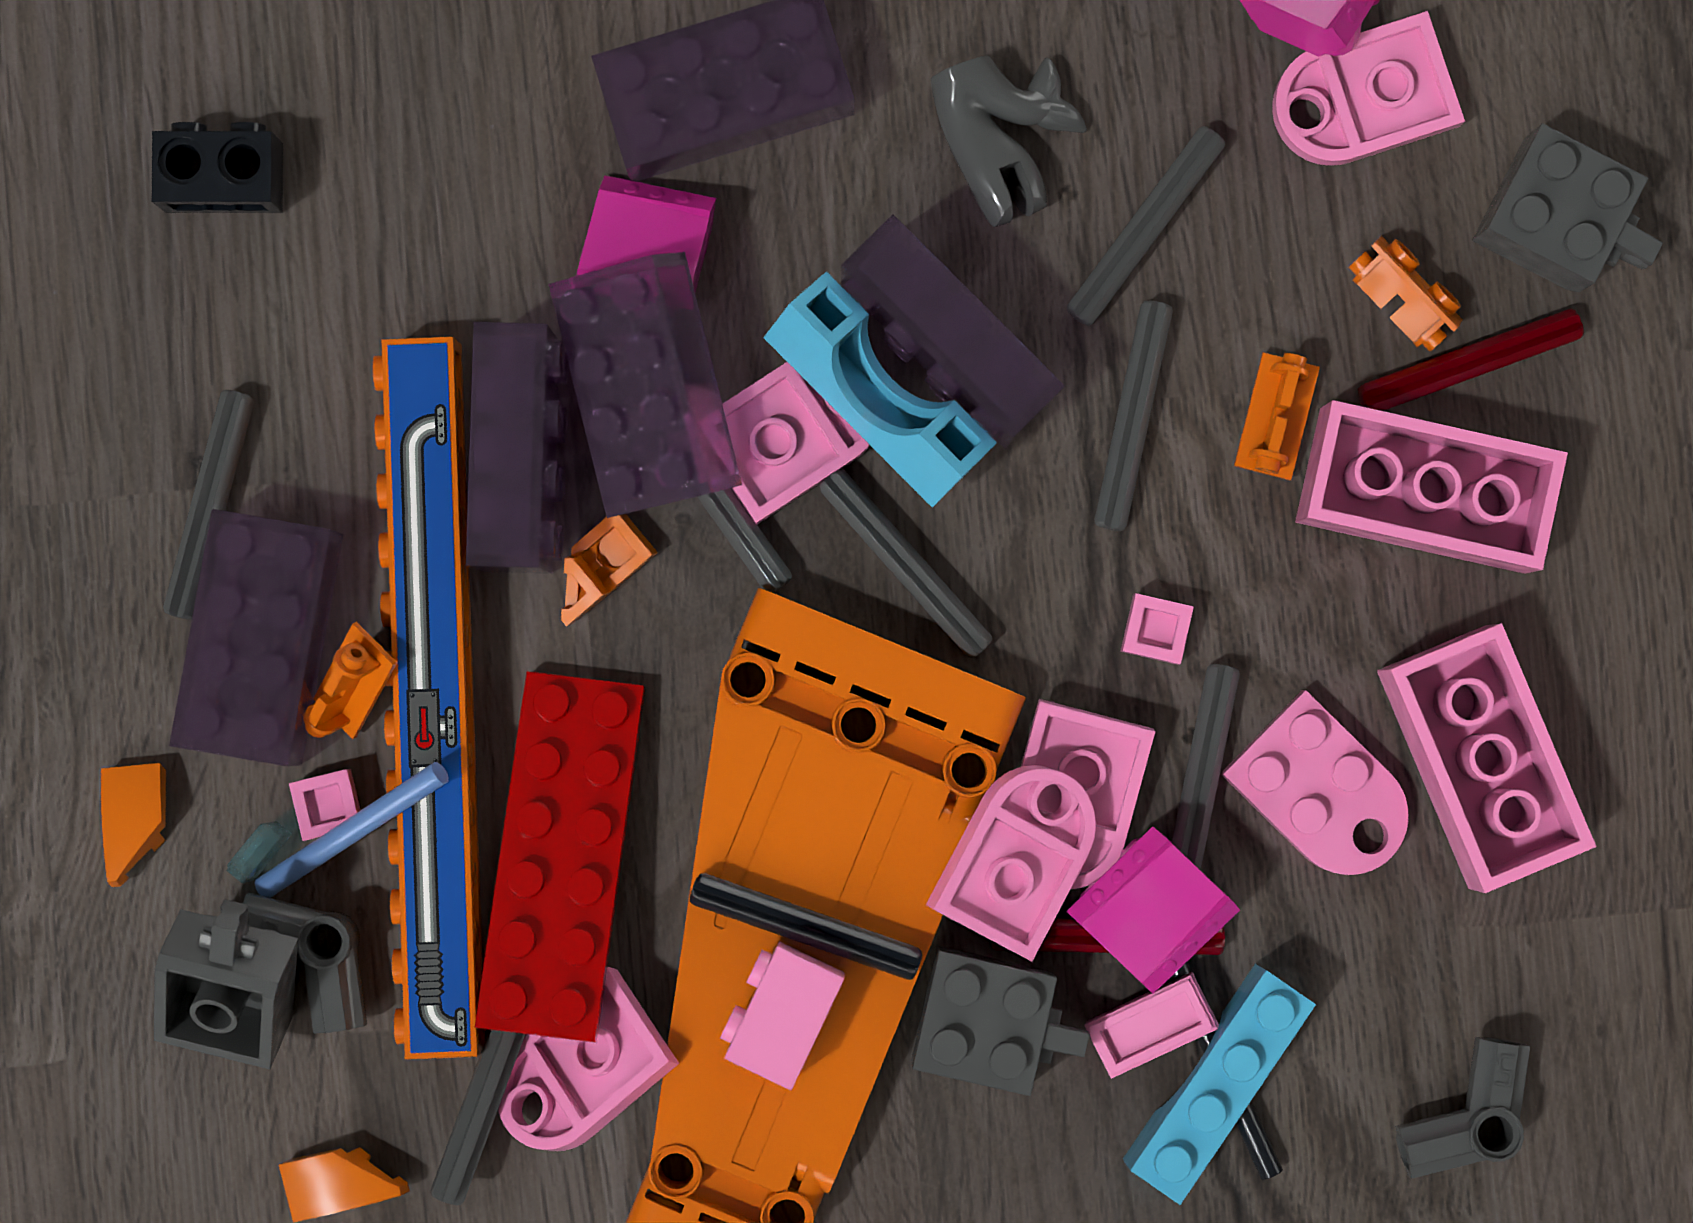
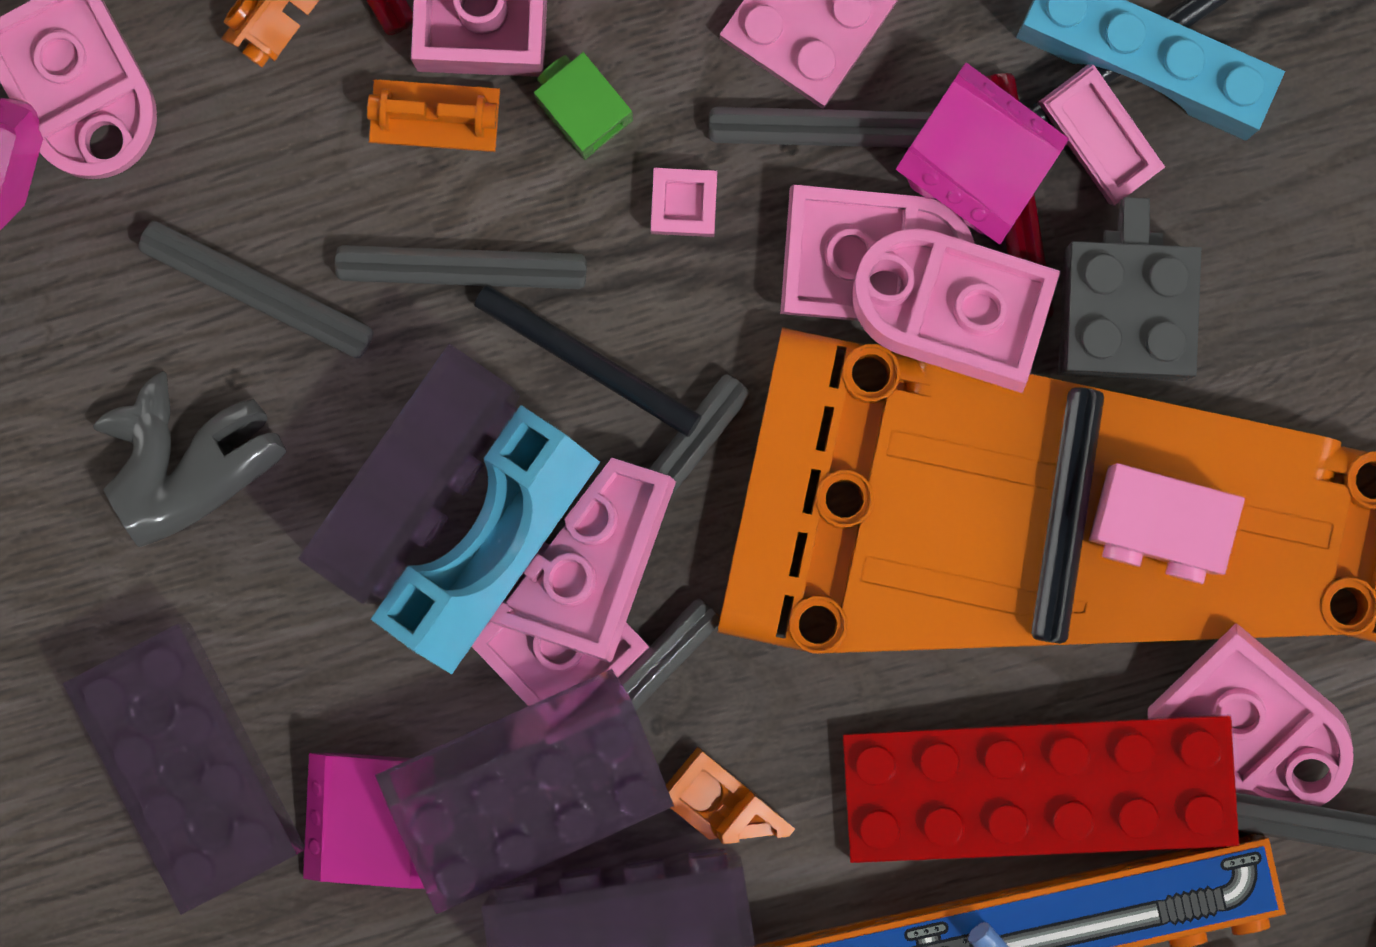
camera: 95 degrees left, 0 degrees up
(838, 485) = (593, 567): none -> bright pink wing
(1026, 515) = (587, 361): none -> black bar
(1264, 551) = (582, 103): none -> bright green brick

